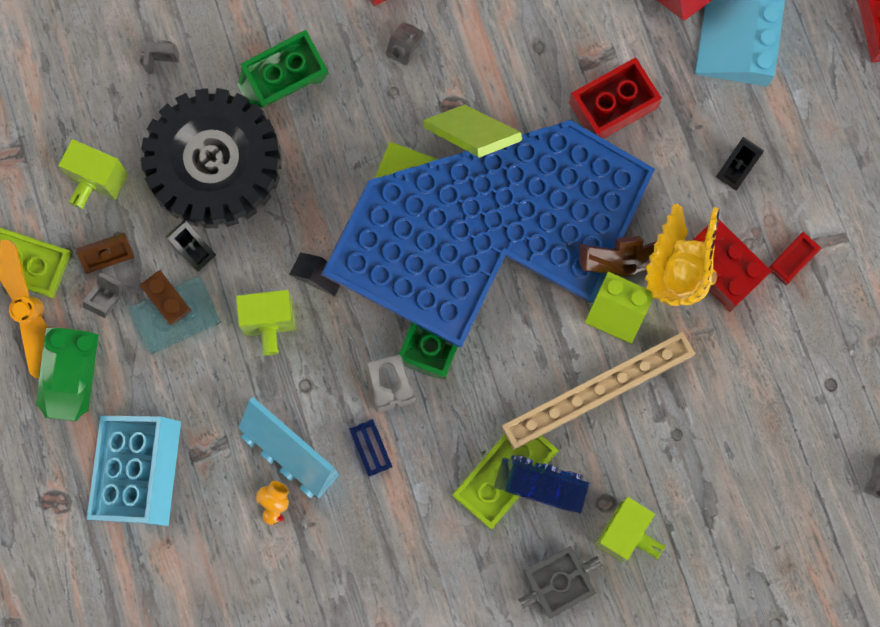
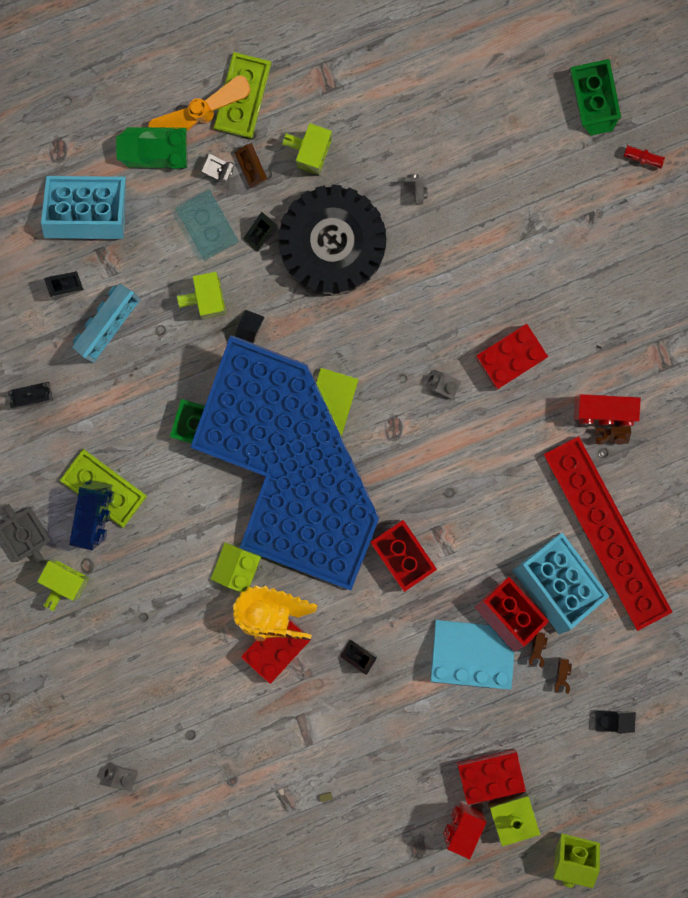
camera: 90 degrees right, 10 degrees up
(165, 297) = (218, 216): reddish brown plate -> none
(233, 505) = (63, 285): none -> black slope
(275, 501) = (68, 314): light orange animal -> none
(282, 70) = (409, 288): green slope -> none
(362, 427) = (130, 377): clear blue tile -> none
(375, 560) = (30, 395): none -> black hinge
(387, 398) = (151, 393): light grey piece -> none
(472, 130) = (363, 442): lime tile -> none
(598, 391) = (169, 555): tan plate -> none
(625, 260) = (274, 571): reddish brown plate -> none
(794, 258) = (288, 704): red tile -> none

